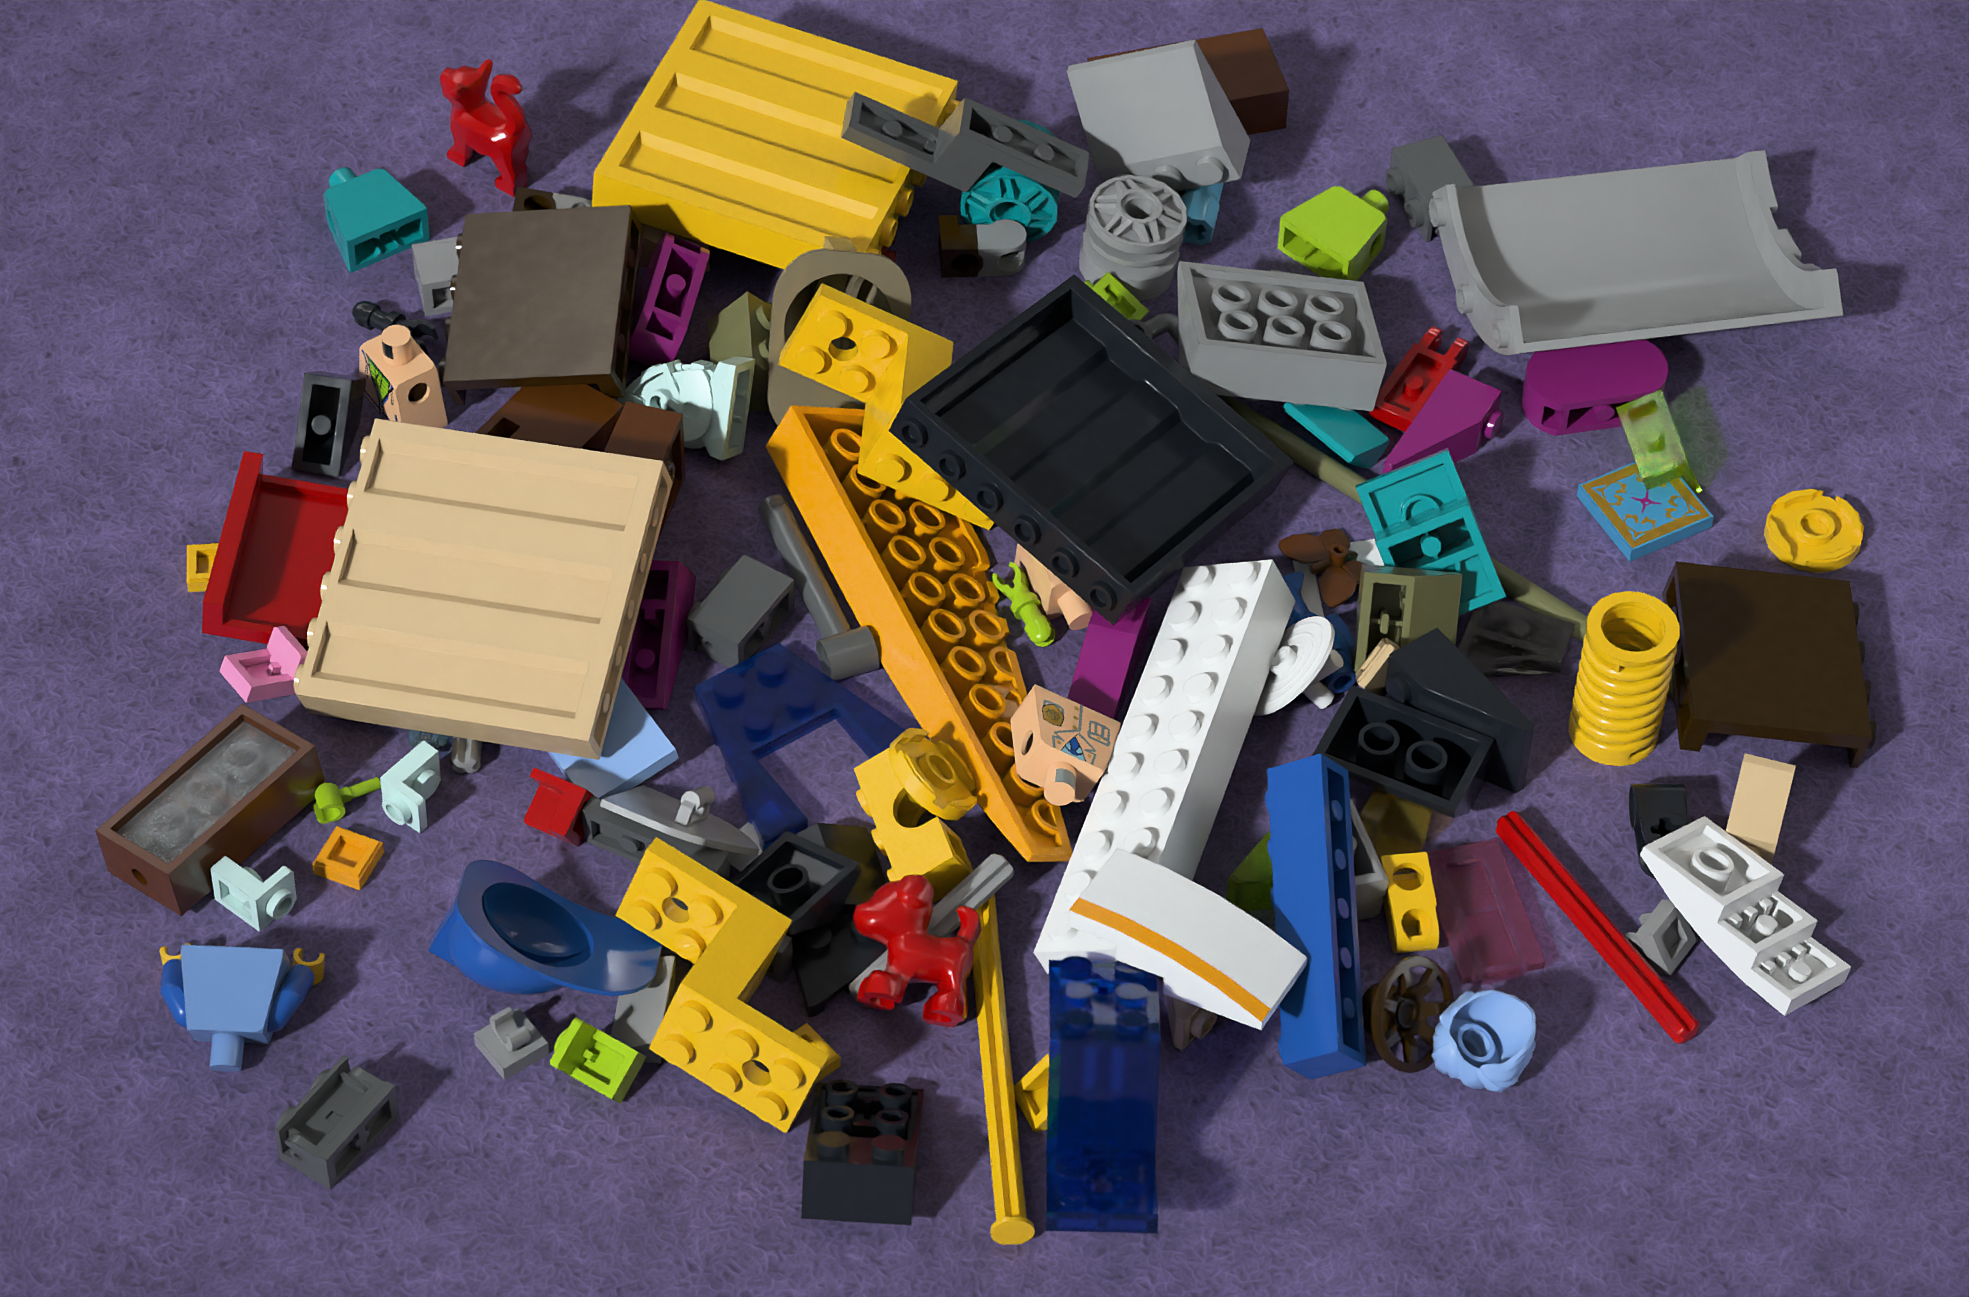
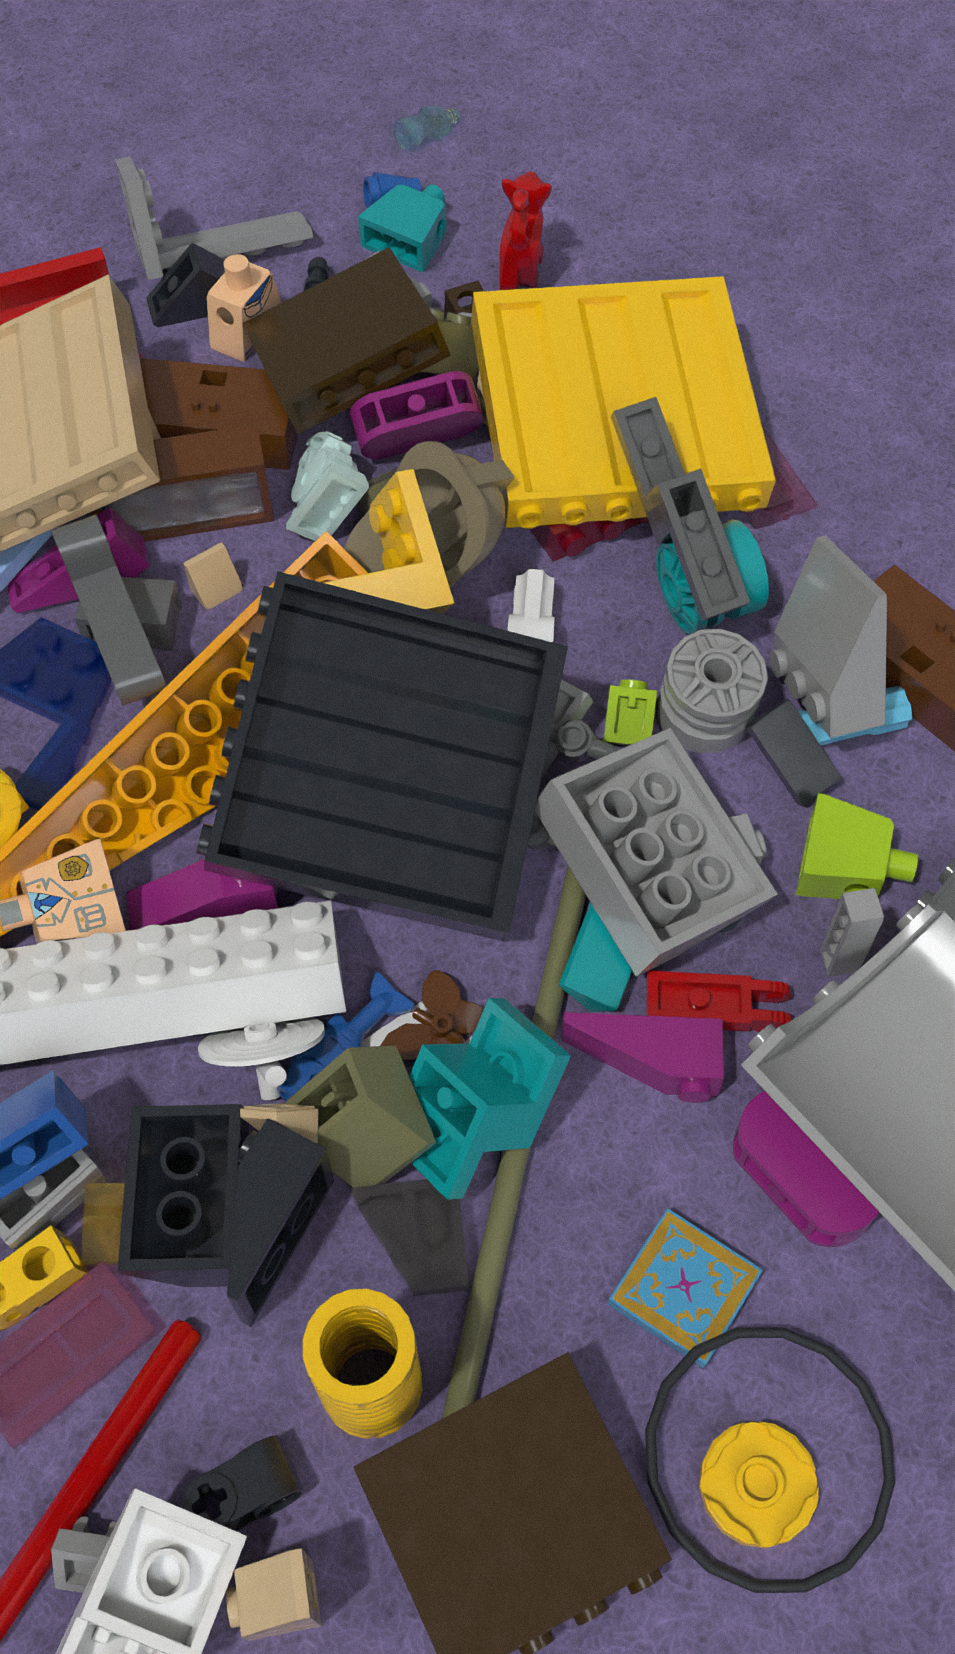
camera: 65 degrees right, 10 degrees up
(222, 155) = (433, 122): none -> clear light blue piece
(244, 397) = (244, 237): none -> light grey bracket
(300, 214) = (380, 183): none -> blue cone
(736, 537) = (212, 576): none -> tan slope
(773, 600) = (109, 610): none -> dark grey beam
(841, 650) = (184, 649): dark grey piece -> none
(962, 328) = (533, 605): none -> white piece
(981, 248) = (636, 596): leg -> none
(1226, 217) = (793, 752): none -> black tile
(1428, 253) = (851, 932): none -> light grey piece
(1657, 441) = (765, 1265): clear neon green panel -> none
(1808, 442) = (694, 1551): none -> black piece

